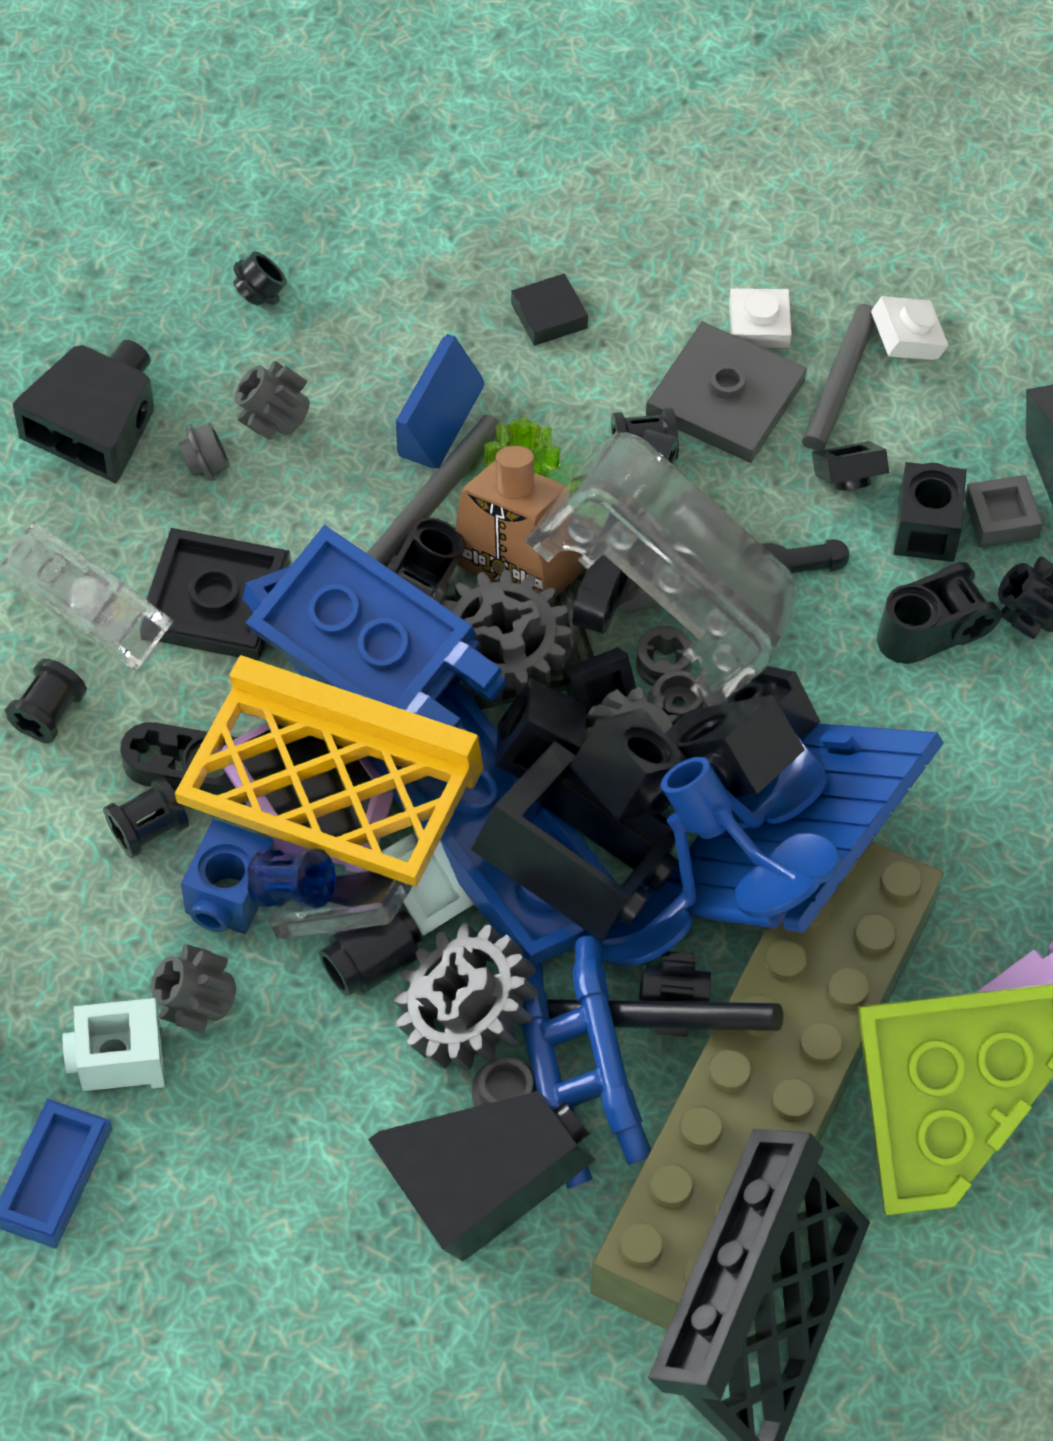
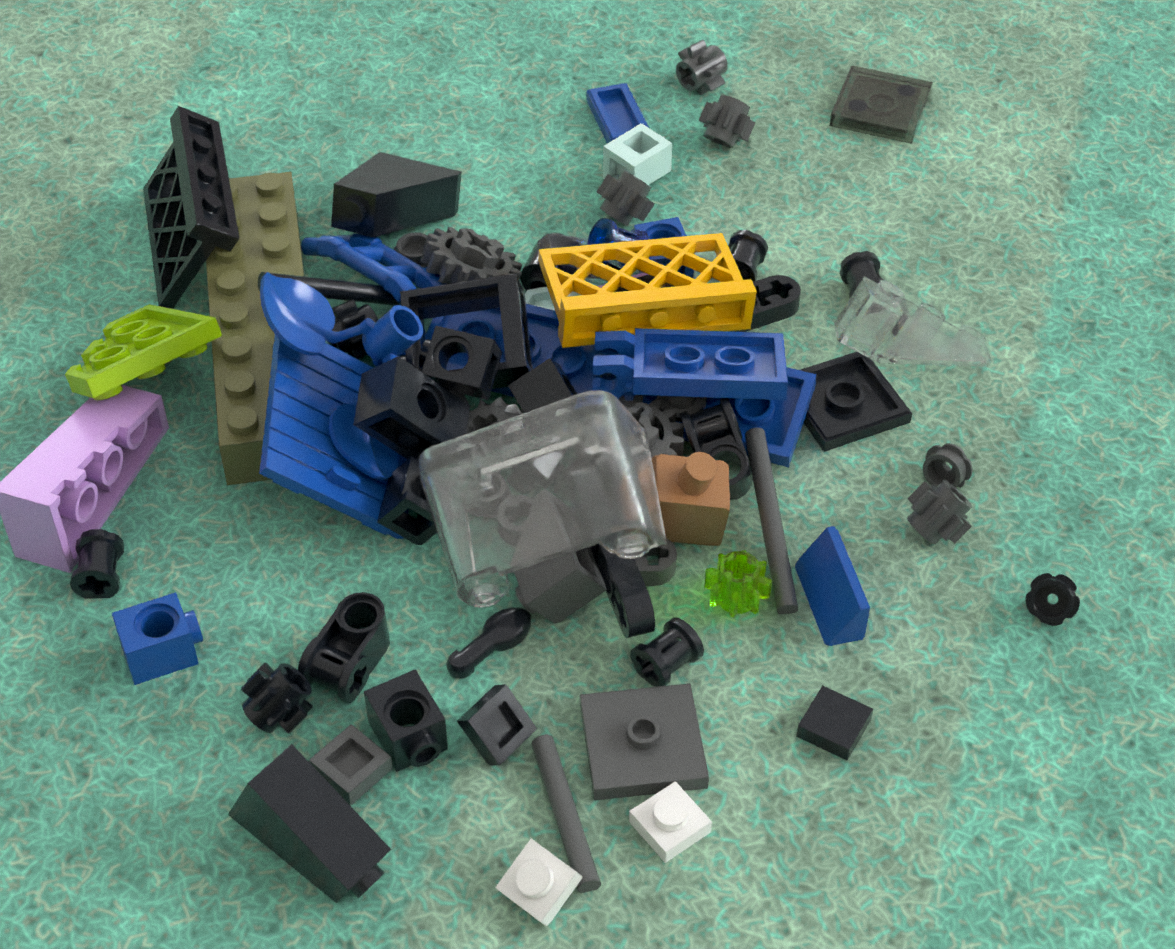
camera: 145 degrees right, 10 degrees down
(89, 408) = (1042, 442): black torso -> none

